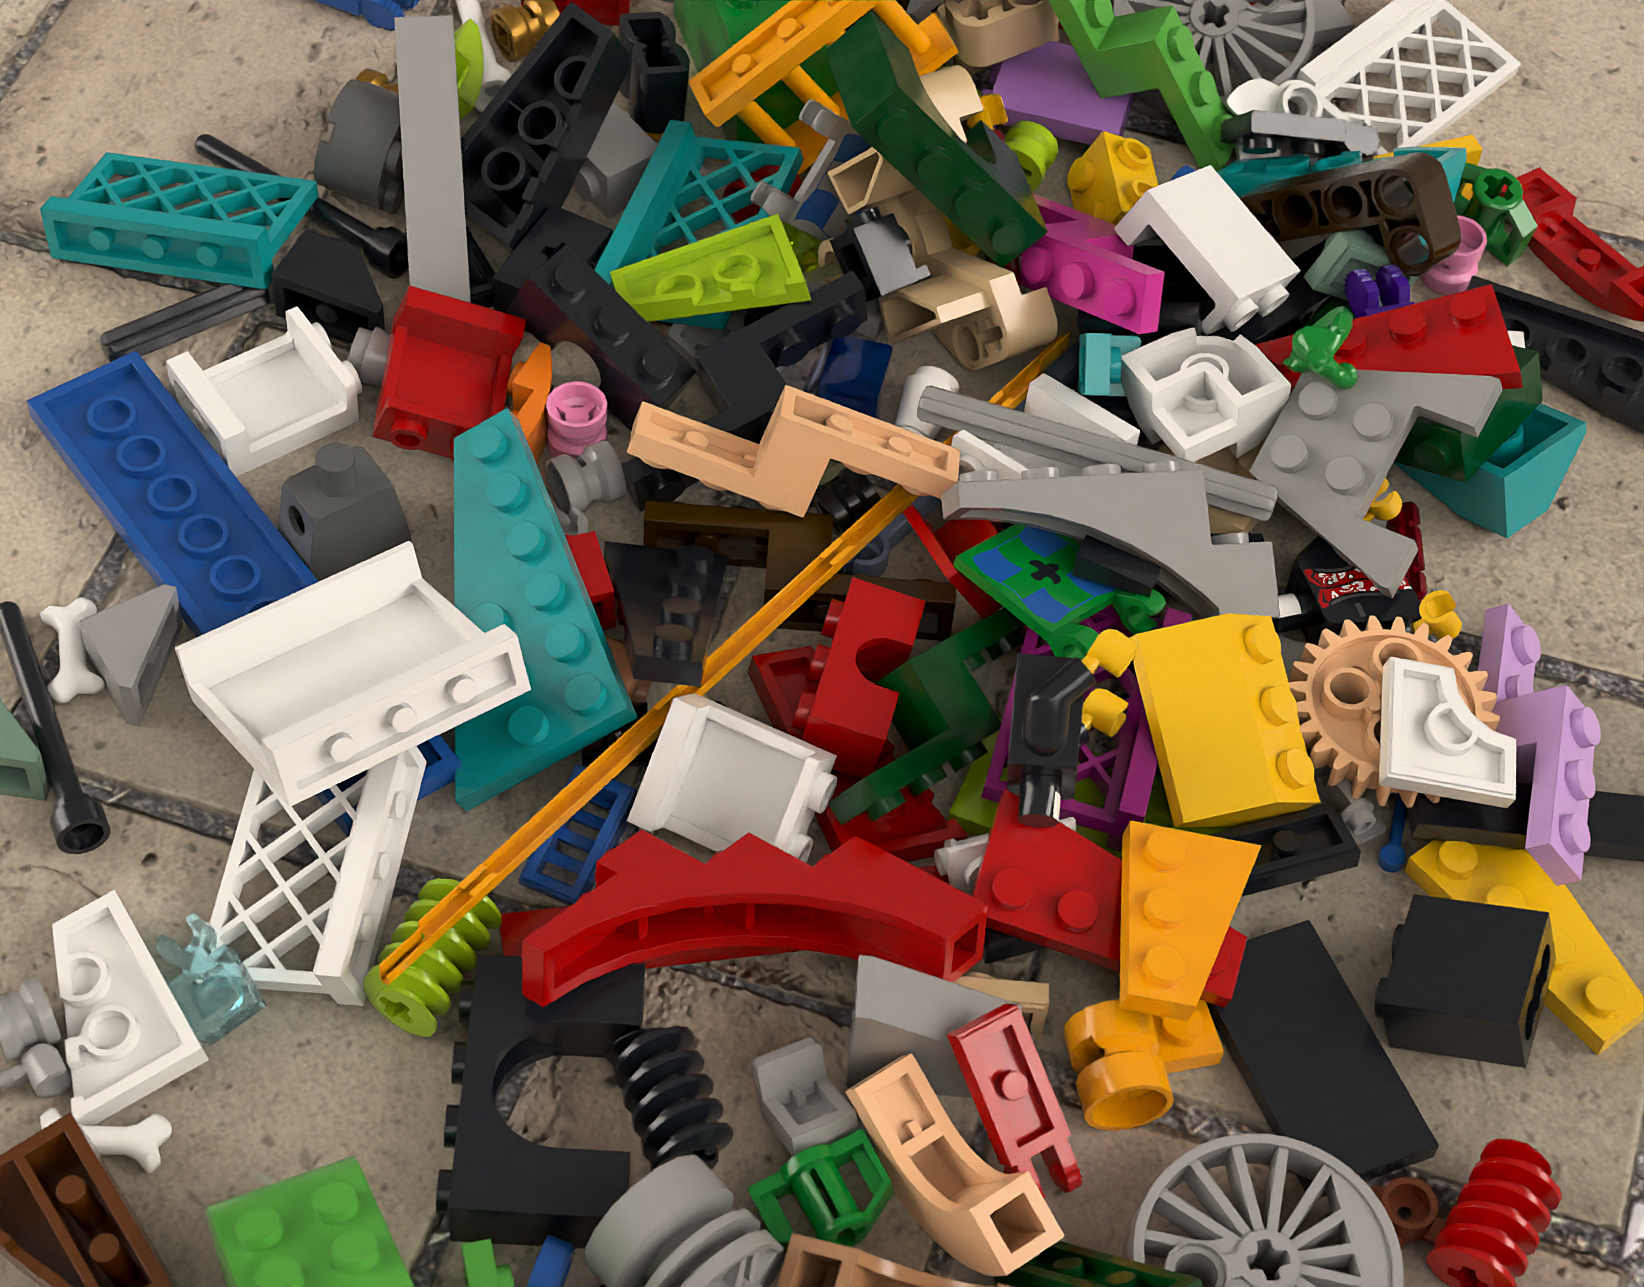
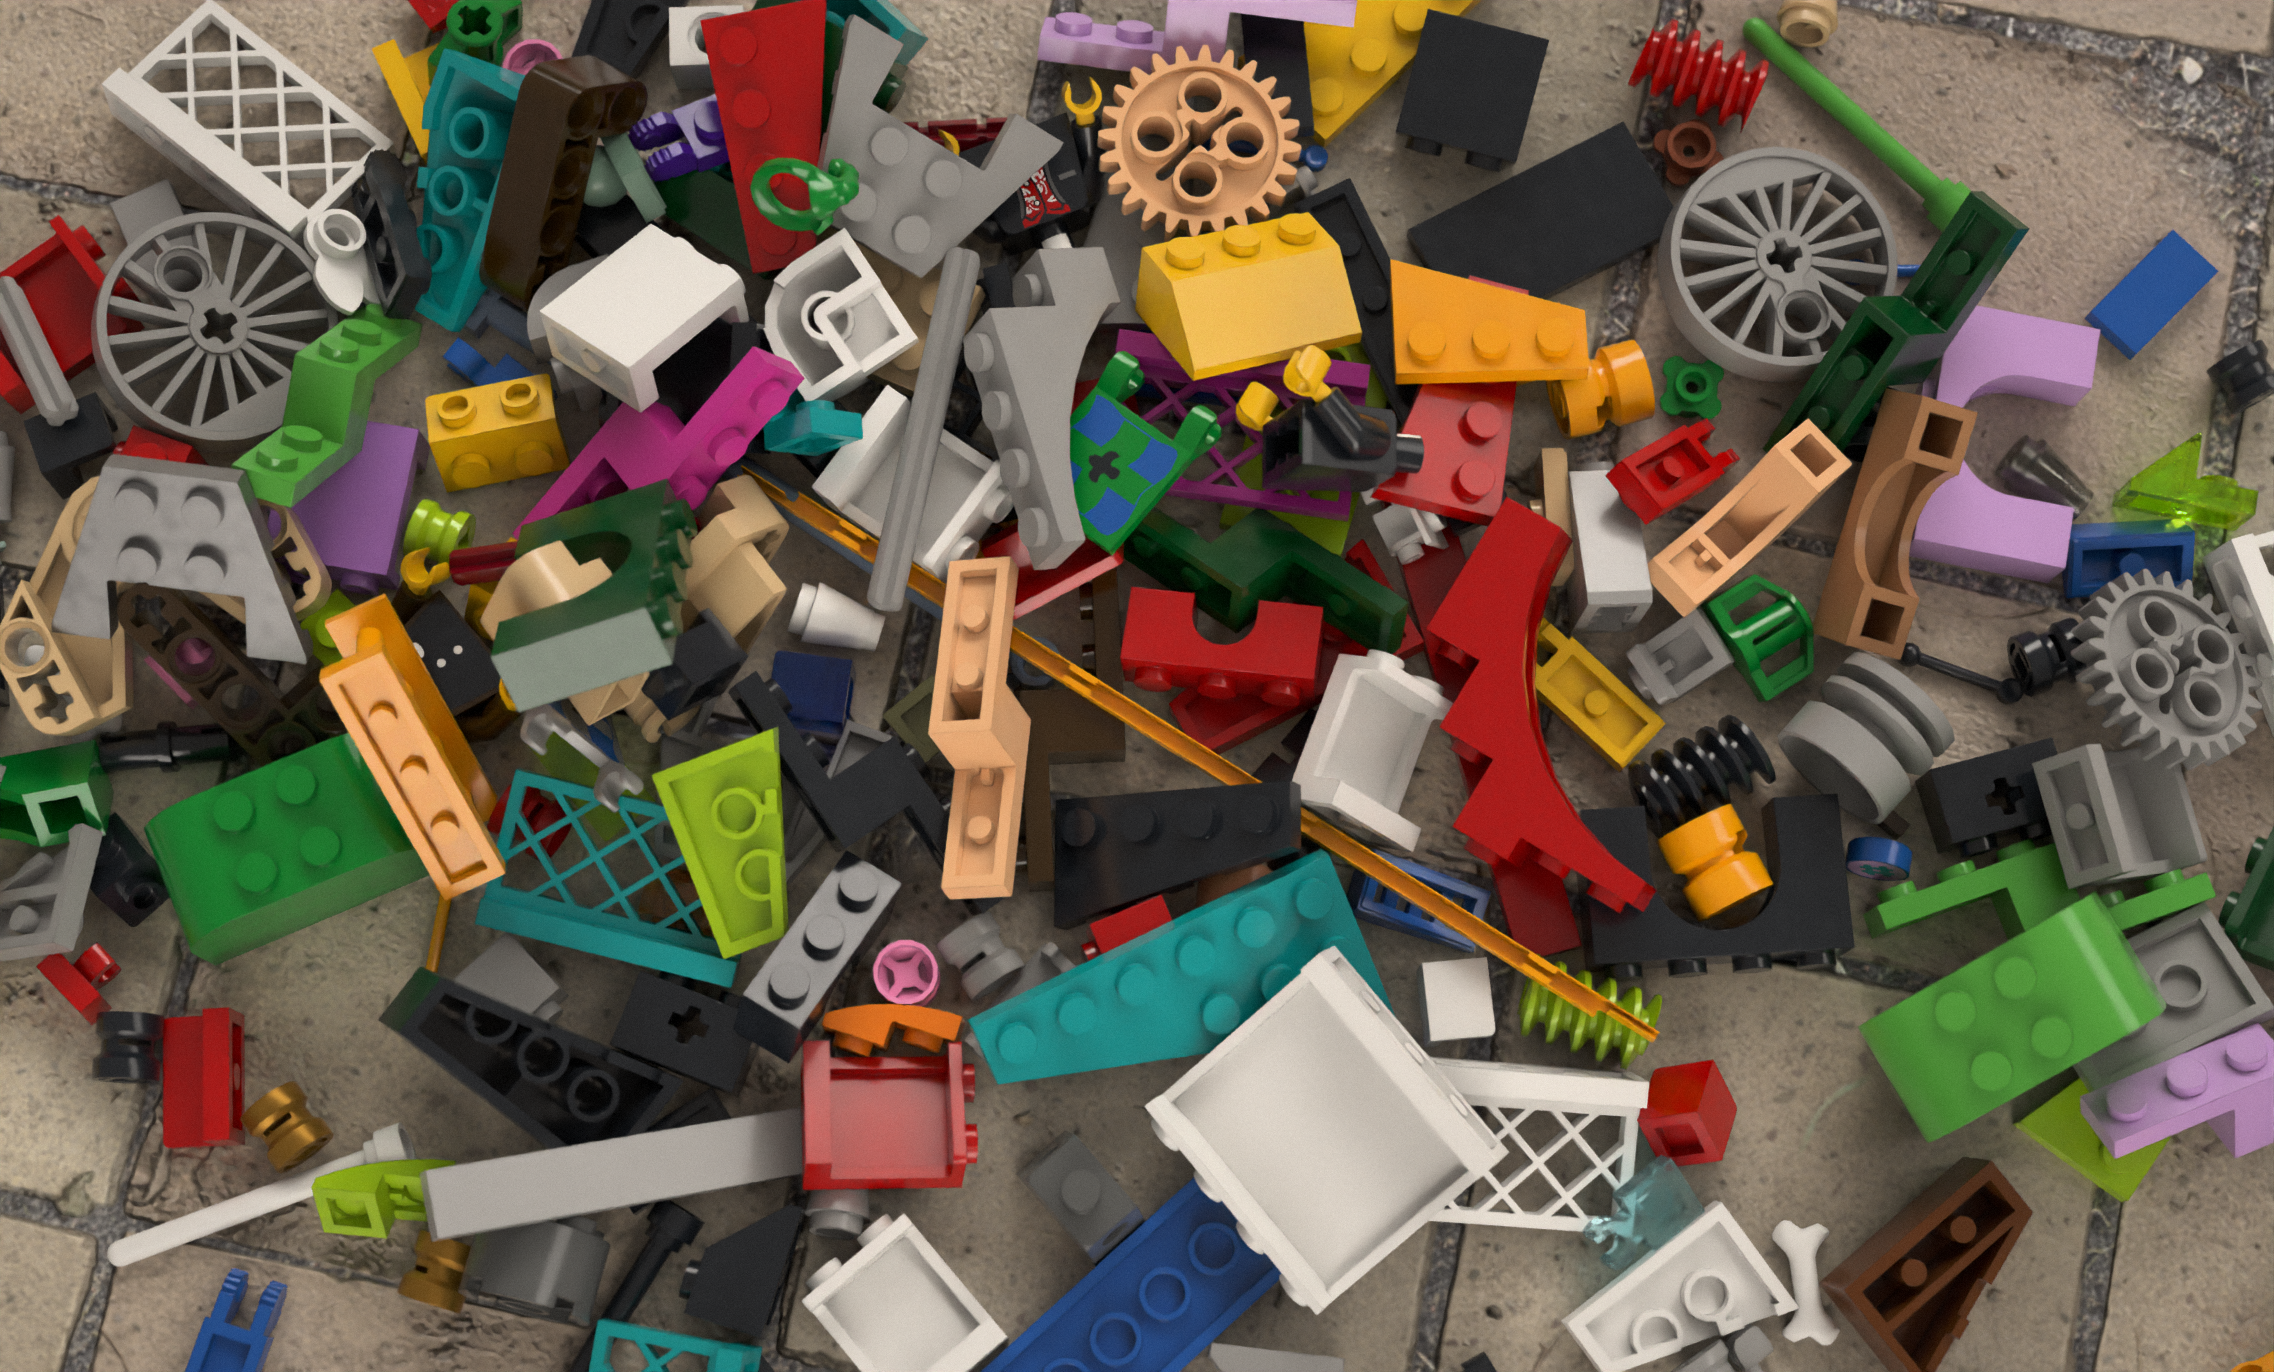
camera: 95 degrees left, 25 degrees up
(304, 1043) = (1688, 1113): none -> red panel
(465, 832) = (1455, 1000): none -> white panel
(571, 1098) = (1714, 862): none -> light orange wheel
(658, 73) = (364, 967): black brick -> none
(773, 1014) = (1593, 700): none -> yellow hinge
(1110, 1188) = (1680, 402): none -> green plate
(1115, 567) = (1094, 396): black piece -> none
(1435, 741) = (1252, 101): white tile -> none

